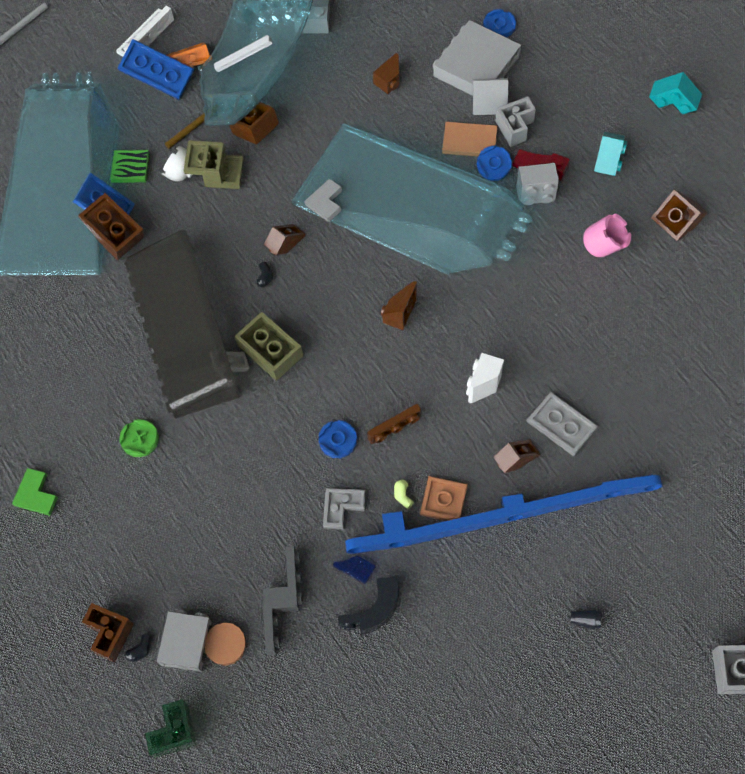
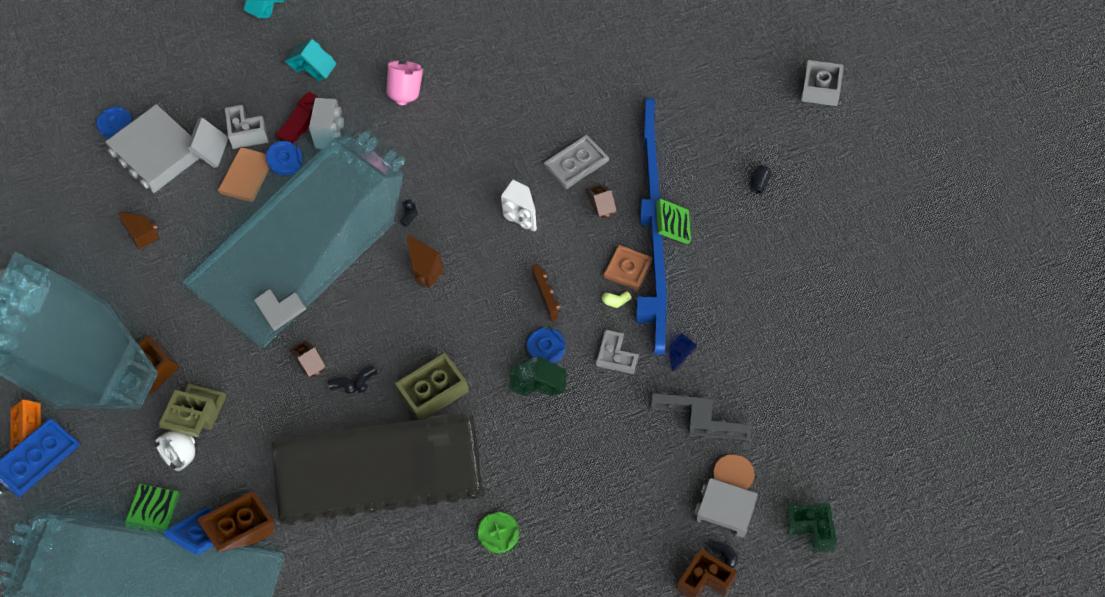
camera: 80 degrees left, 5 degrees down
(185, 131) = (125, 437): pearl gold bar -> none
(243, 53) = (61, 355): axle -> none
(274, 288) = (363, 376): none -> black arm
(293, 434) = (538, 375): none -> clear green brick
(379, 613) = (726, 332): black arch -> none
(460, 285) = (411, 213): none -> black arm
(504, 532) = (673, 221): none -> bright green tile
(679, 215) = (395, 26): reddish brown slope -> none

